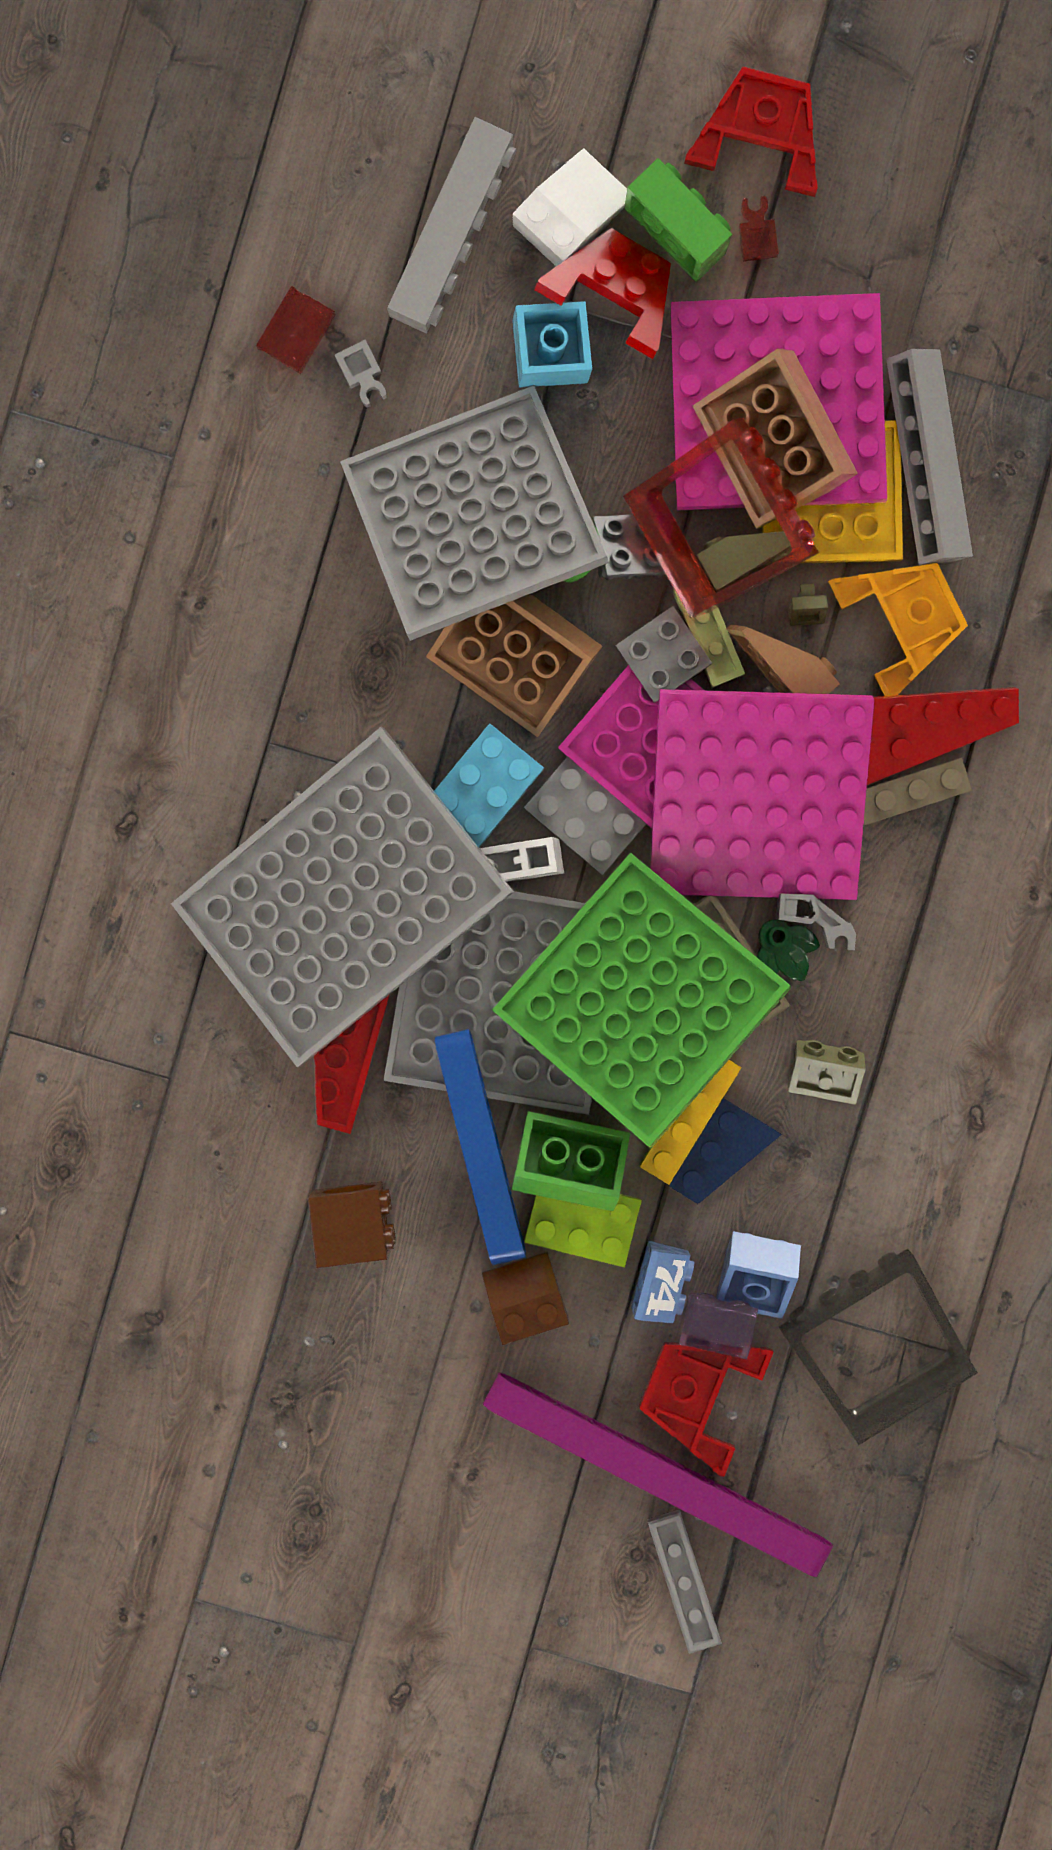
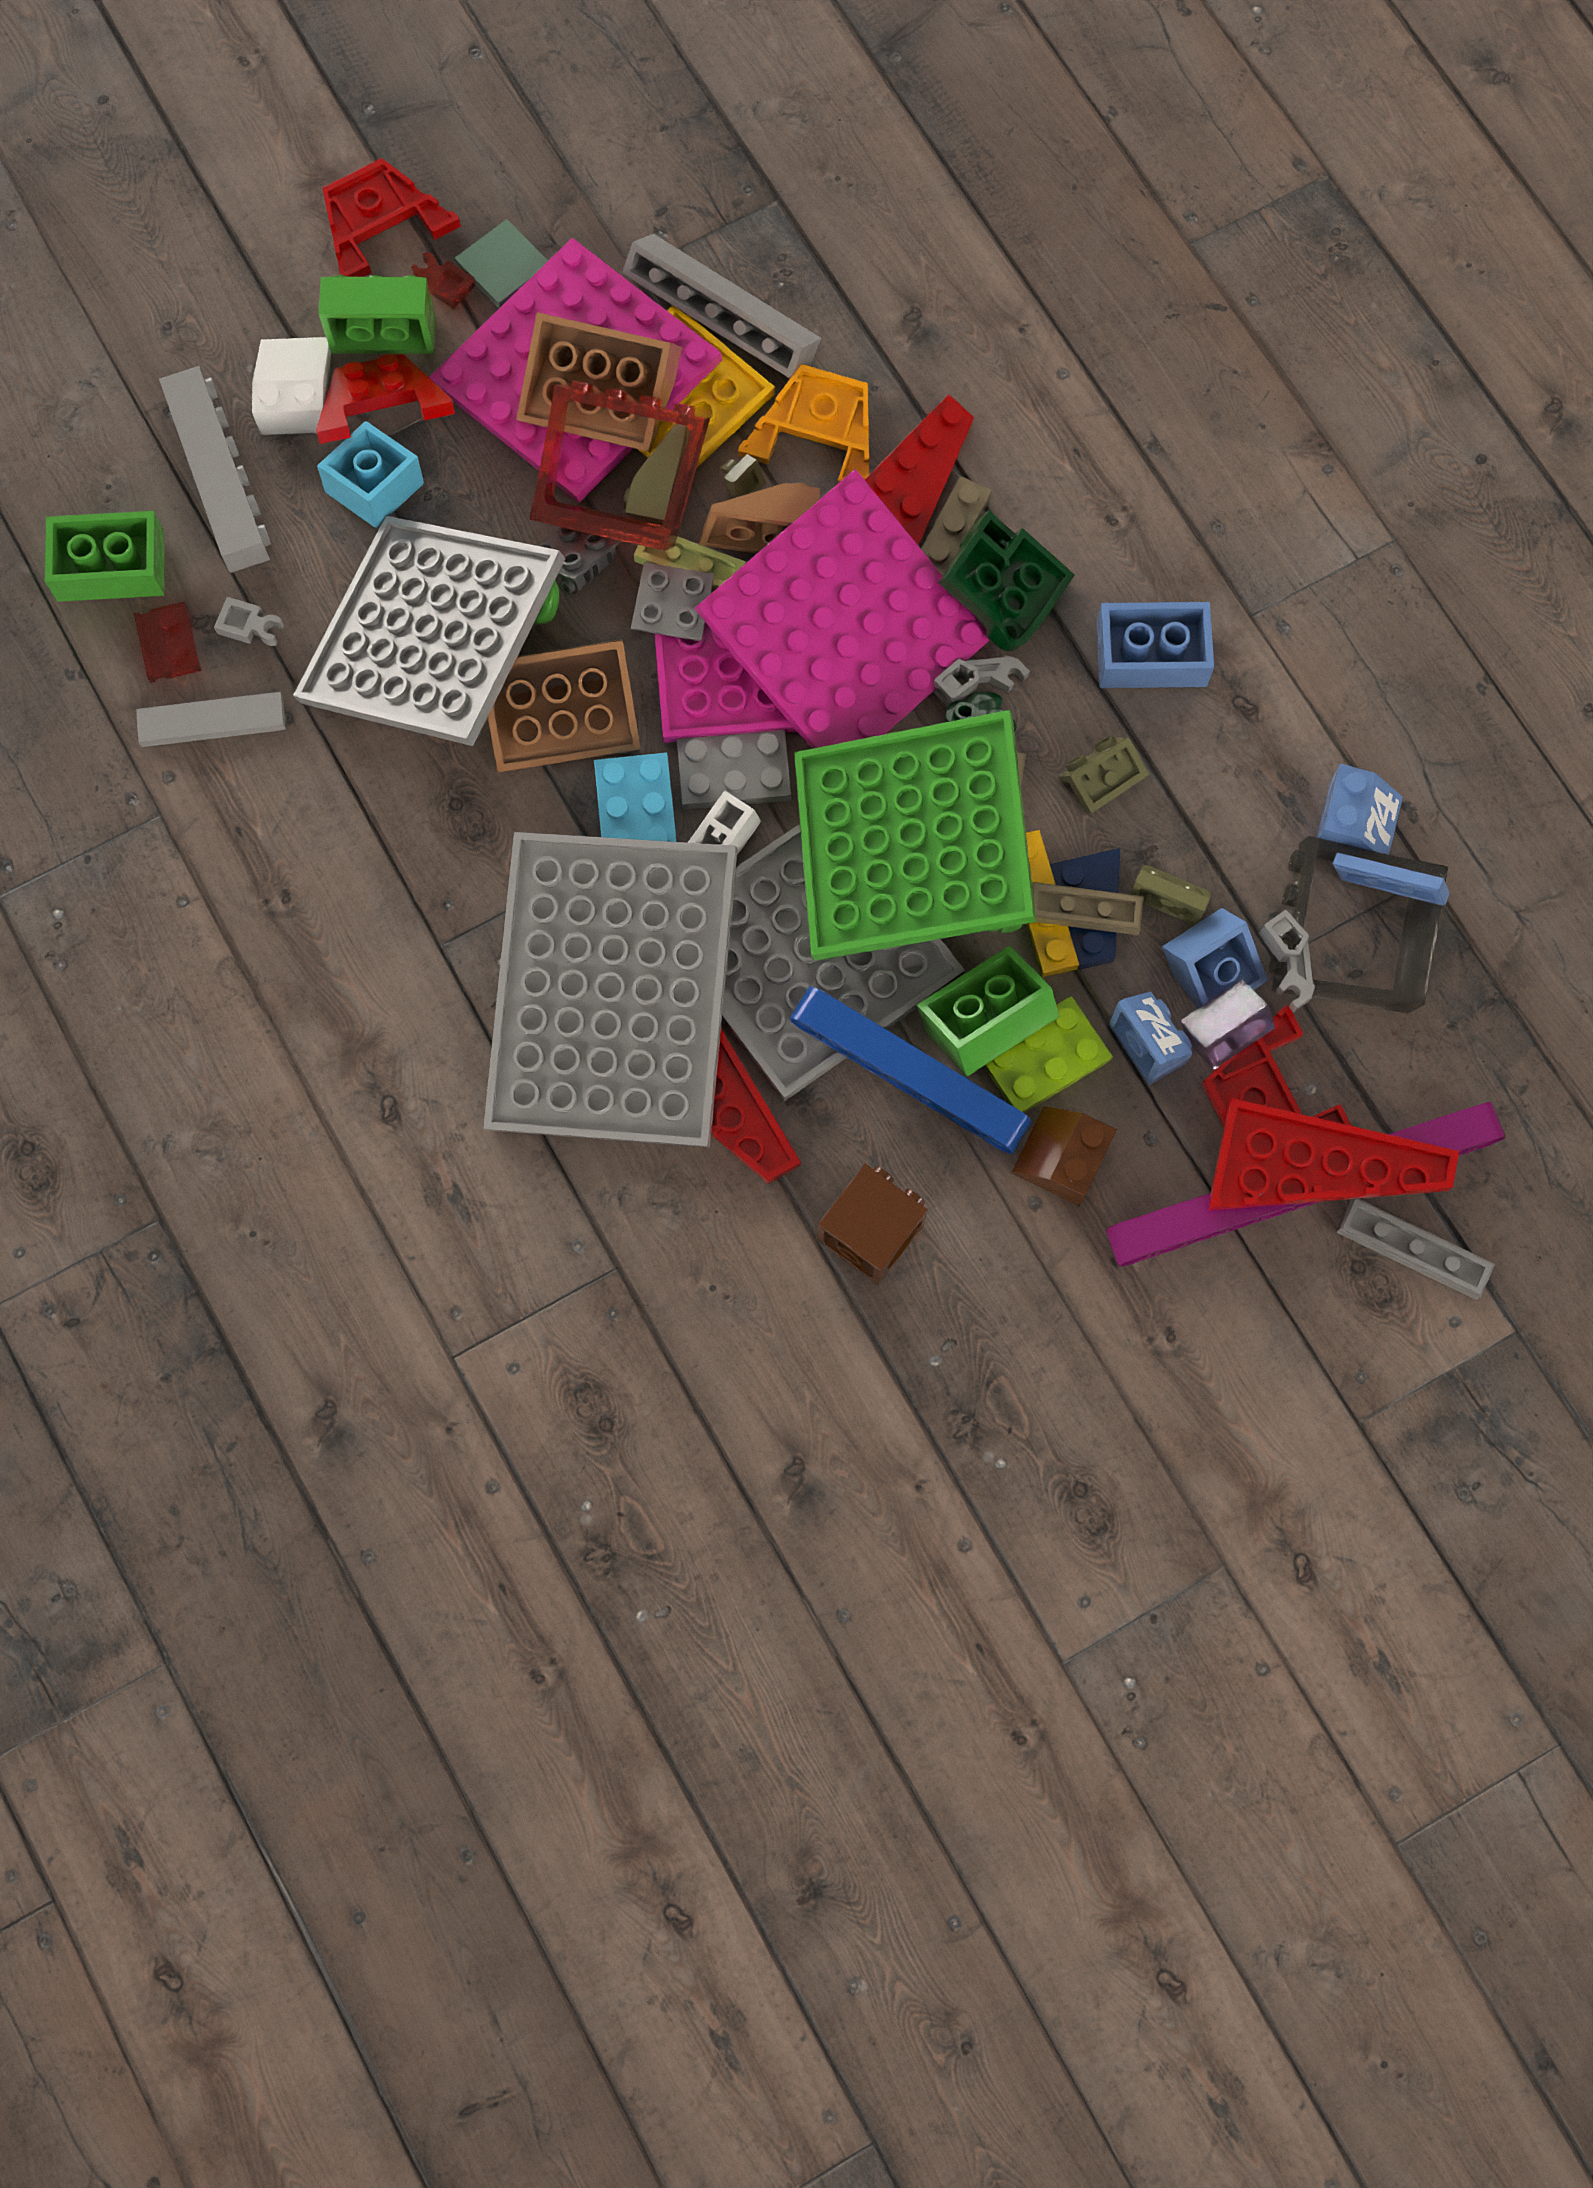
camera: 50 degrees left, 15 degrees down
(270, 420) = (210, 719): none -> light grey tile
(309, 223) = (104, 556): none -> bright green brick
(663, 1462) = (1297, 1158): none -> red wing
(711, 1156) = (1087, 908): none -> dark tan tile
(780, 1200) = (1171, 894): none -> olive bracket
(808, 1334) = (1298, 960): none -> light grey piece
(813, 259) = (501, 262): none -> sand green tile
(905, 870) = (1005, 580): none -> dark green slope
(929, 1343) = (1391, 879): none -> medium blue tile
(956, 1021) = (1154, 645): none -> medium blue brick
(964, 1273) = (1360, 810): none -> medium blue slope

